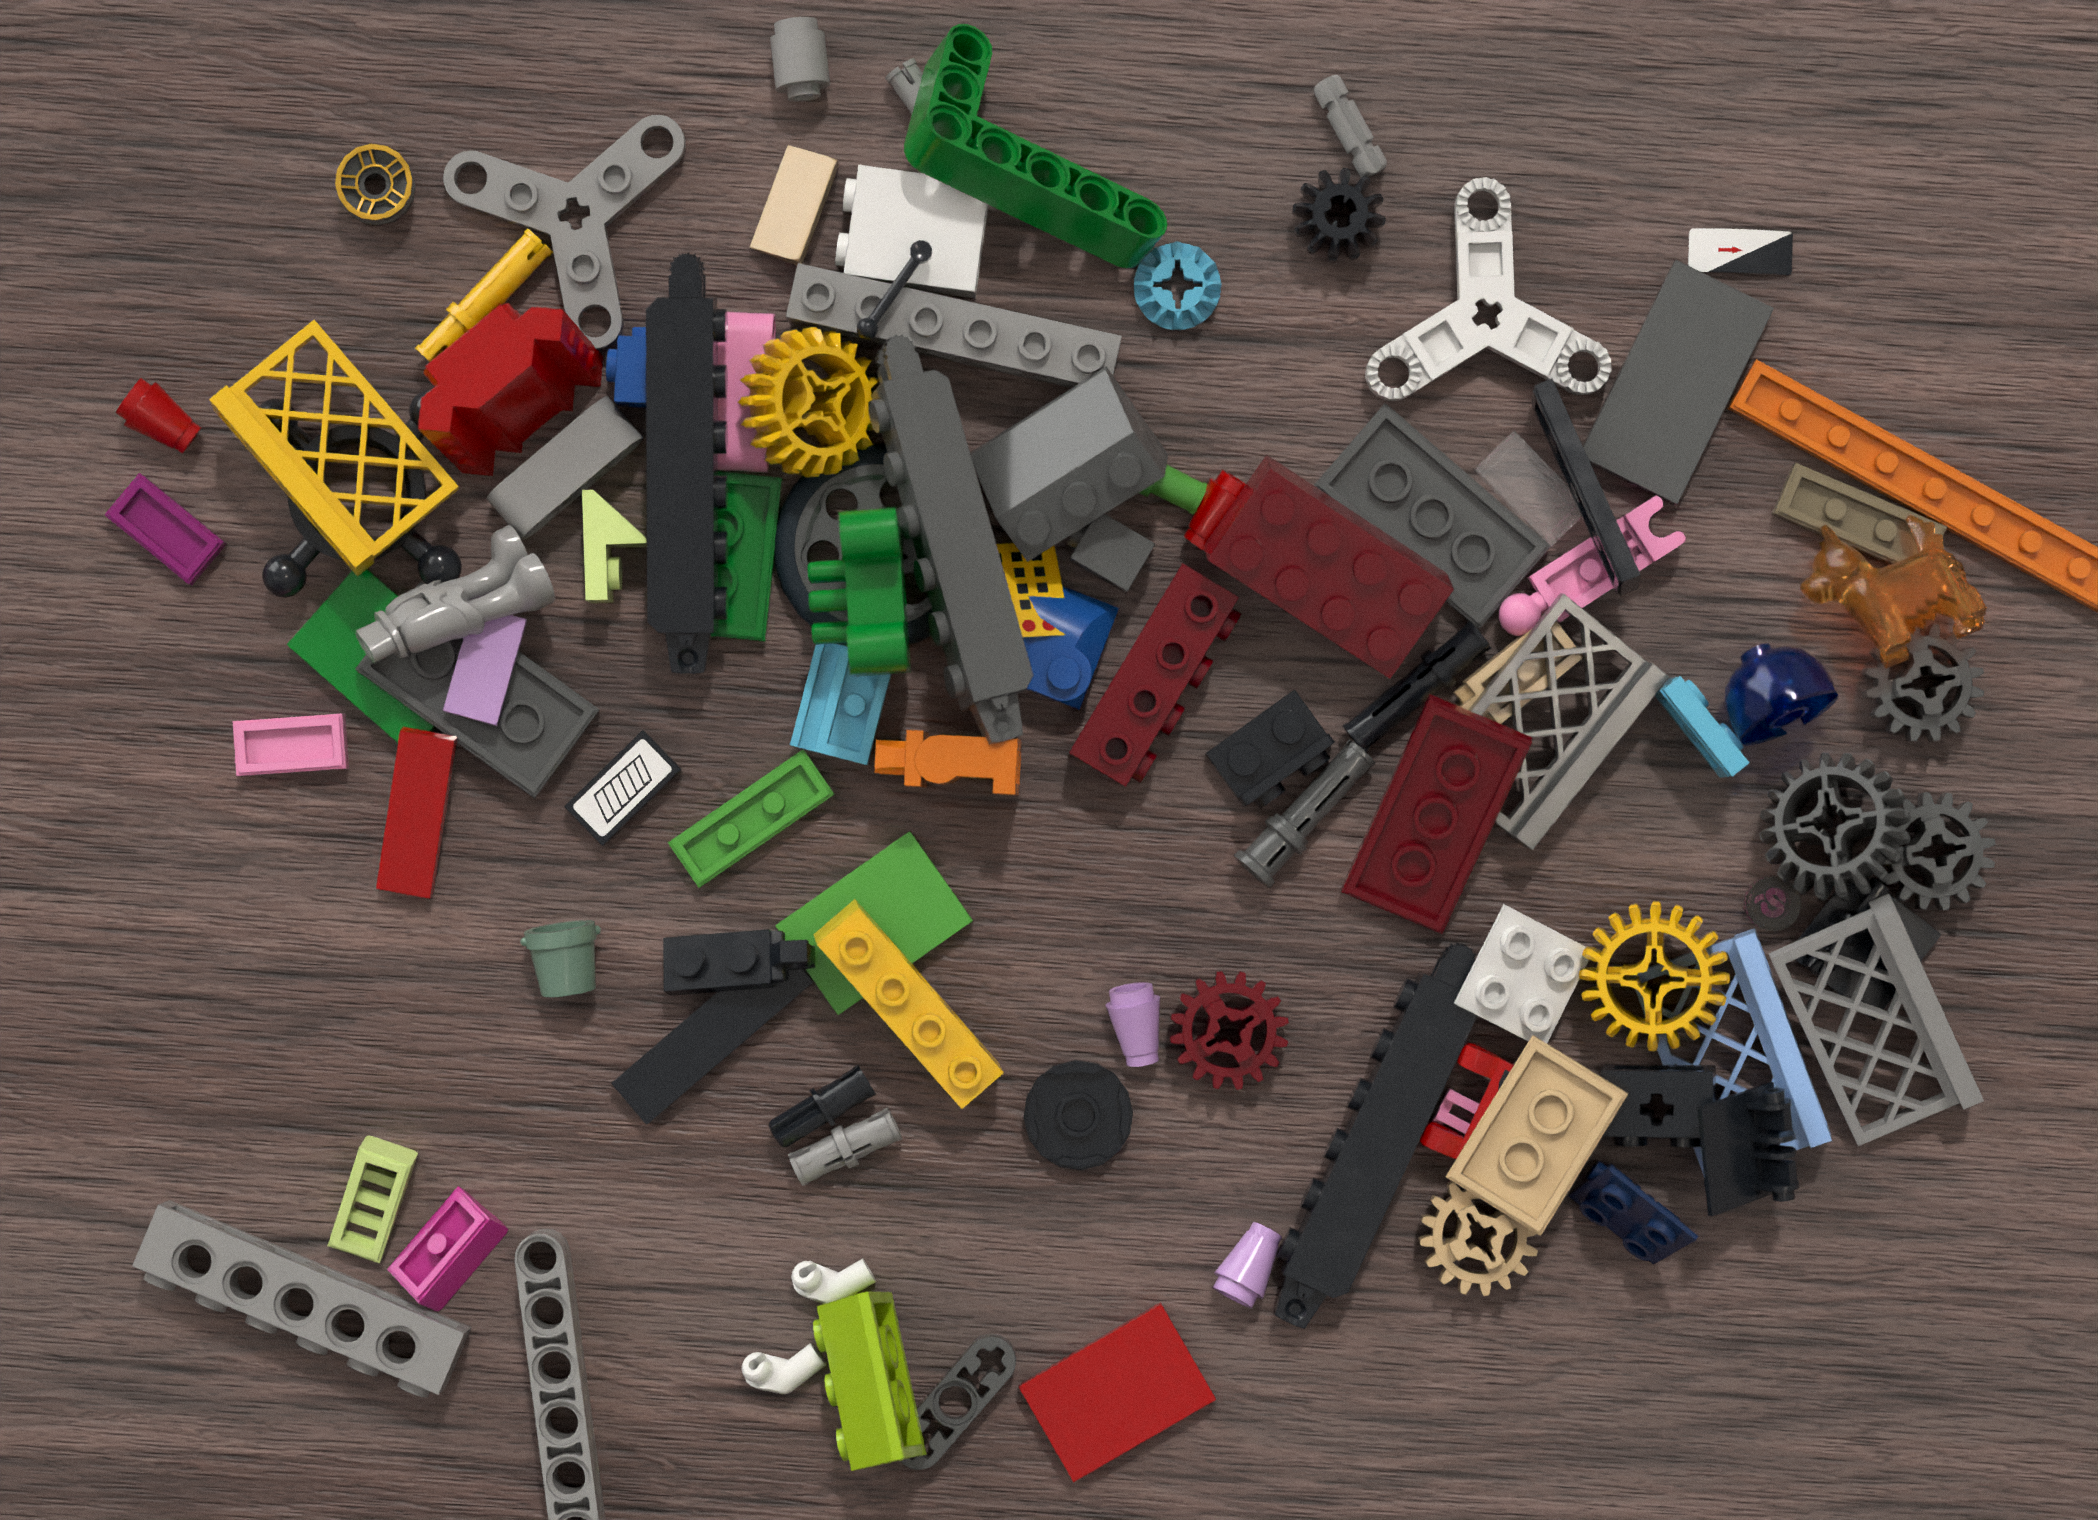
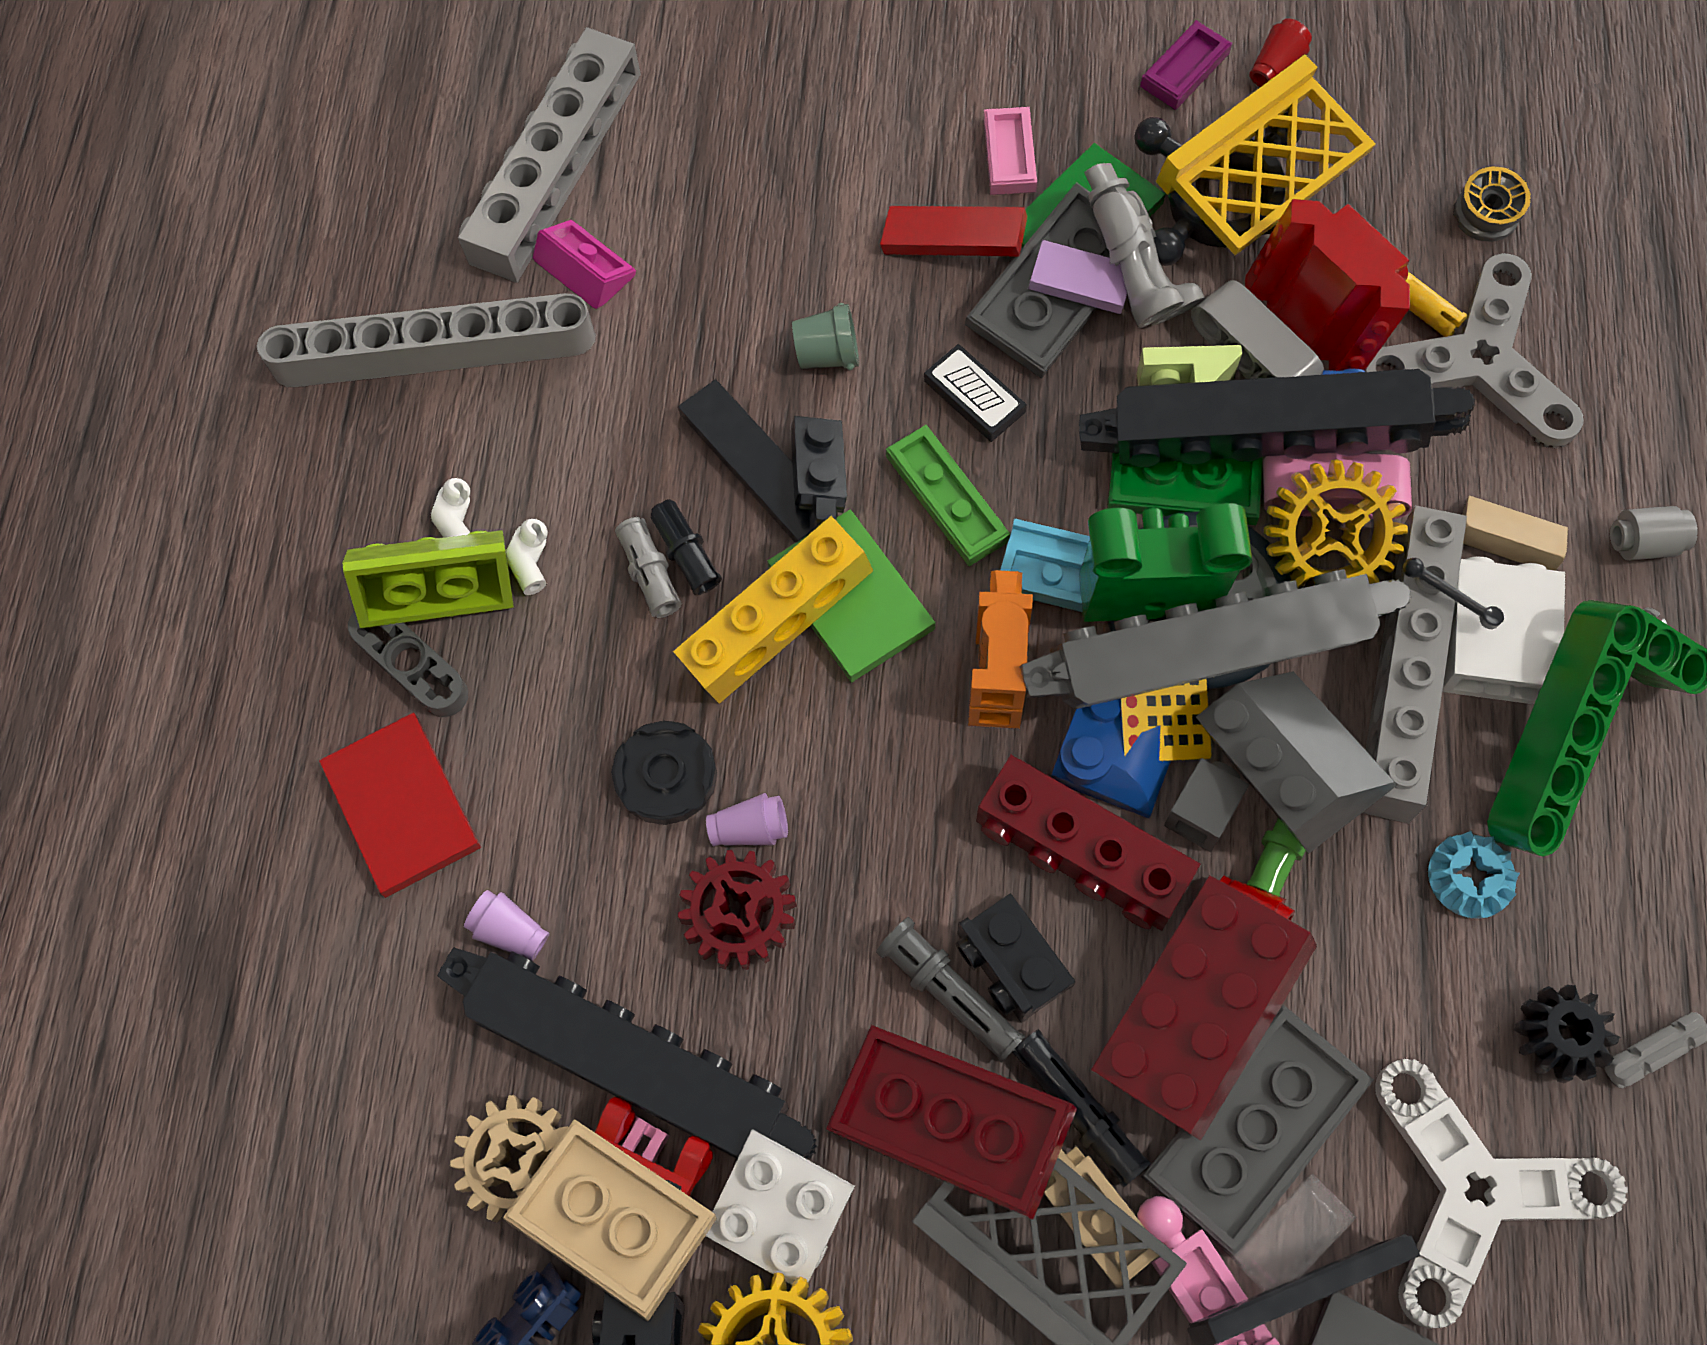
camera: 95 degrees right, 20 degrees down
(385, 1155) = (657, 218): yellowish green slope -> none

